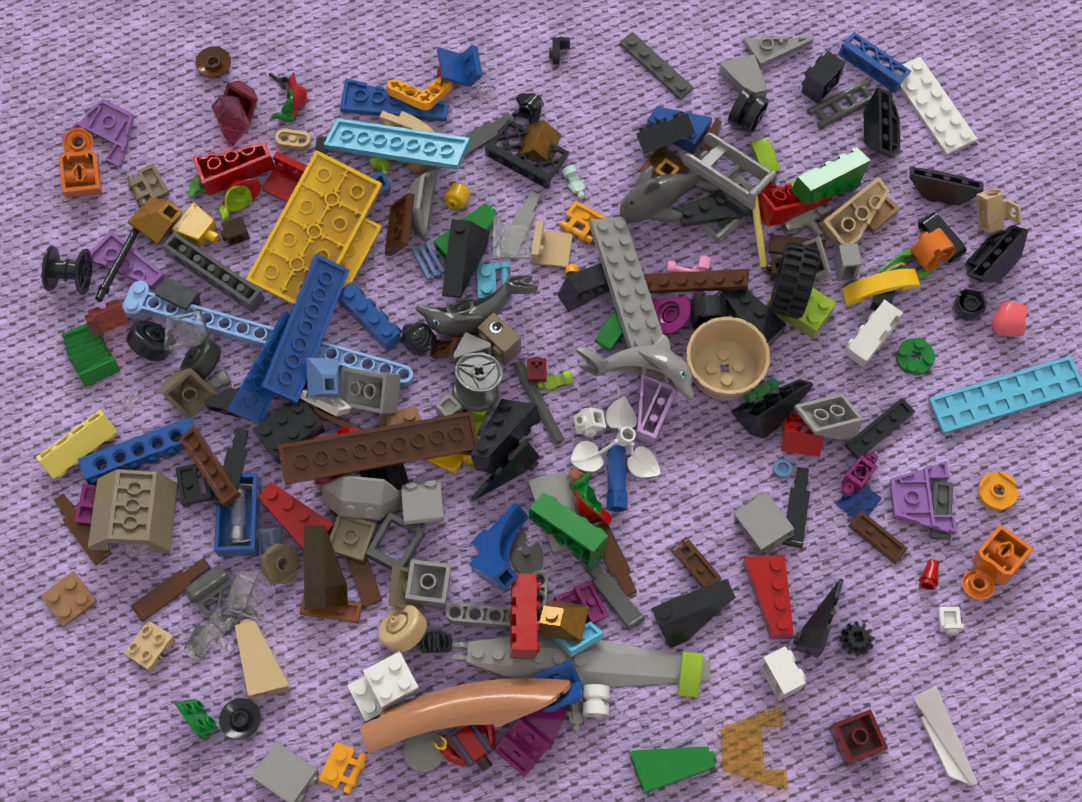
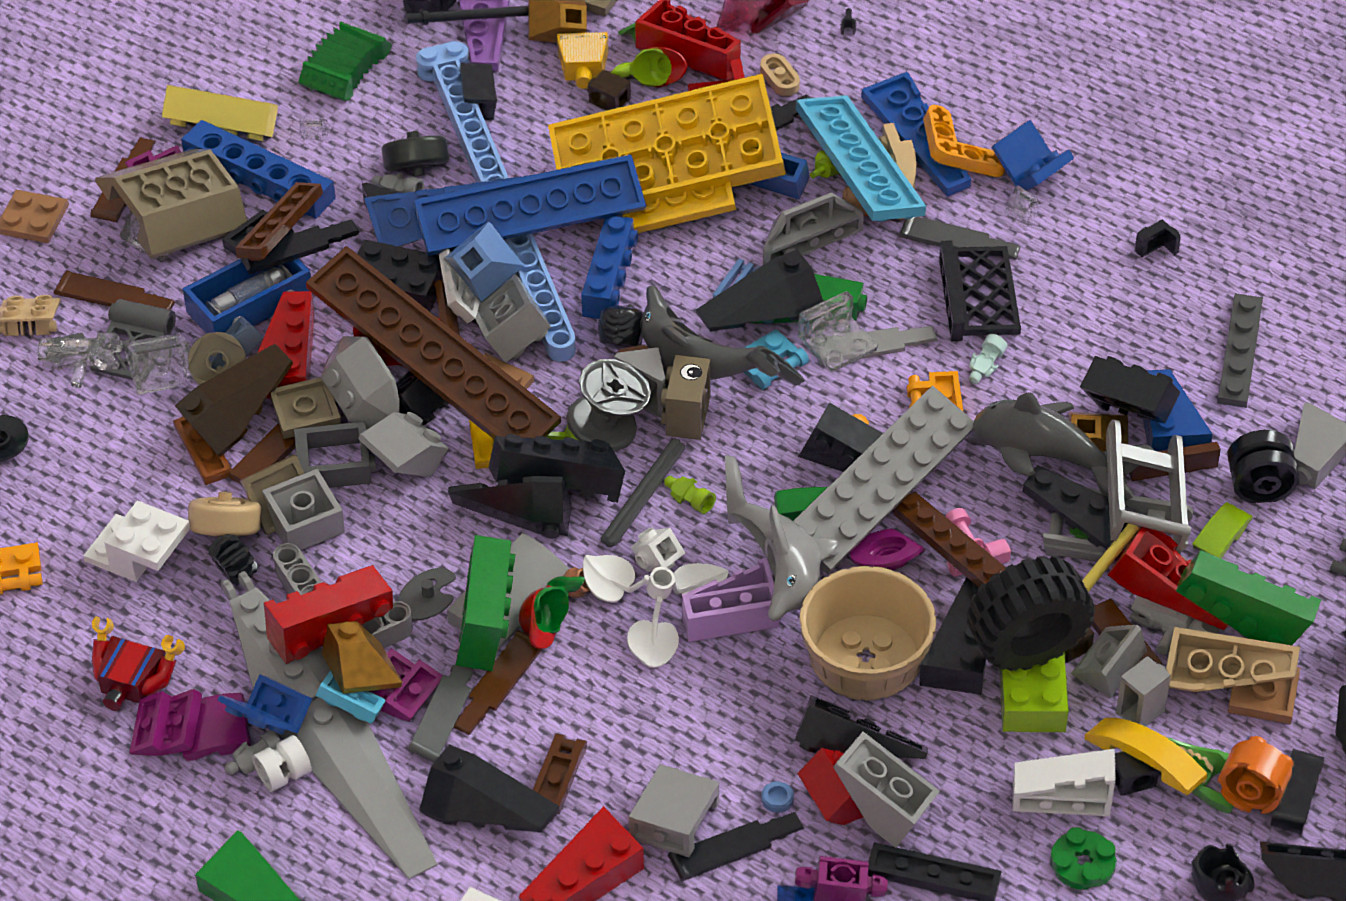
camera: 55 degrees right, 20 degrees down
(106, 319) = (391, 41): clear red bracket -> none
(147, 340) = (401, 98): black wheel -> none
(185, 330) = (438, 115): clear slope -> none
(187, 391) = (361, 161): dark tan slope -> none
(213, 272) = (536, 101): dark grey brick -> none
(260, 667) = (82, 415): tan slope -> none
(295, 101) = (829, 45): hair -> none
(399, 224) = (752, 223): reddish brown tile -> none
(421, 754) = (76, 632): light grey tile -> none
(448, 406) = (556, 397): light grey brick -> none
(457, 195) = (850, 258): yellow head -> none
(462, 705) = (174, 627): nougat slope -> none
(494, 548) = (403, 543): blue arch -> none
(529, 107) = (1045, 256): black brick -> none
(536, 369) = (682, 459): dark red bracket -> none
(539, 141) = (1006, 291): pearl gold slope -> none
(550, 247) = (866, 381): tan bracket -> none
(617, 479) = (605, 623): blue piece -> none
(690, 674) = (396, 841): lime slope -> none
(707, 308) = (934, 578): black brick -> none
(761, 390) = (870, 710): green axle -> none

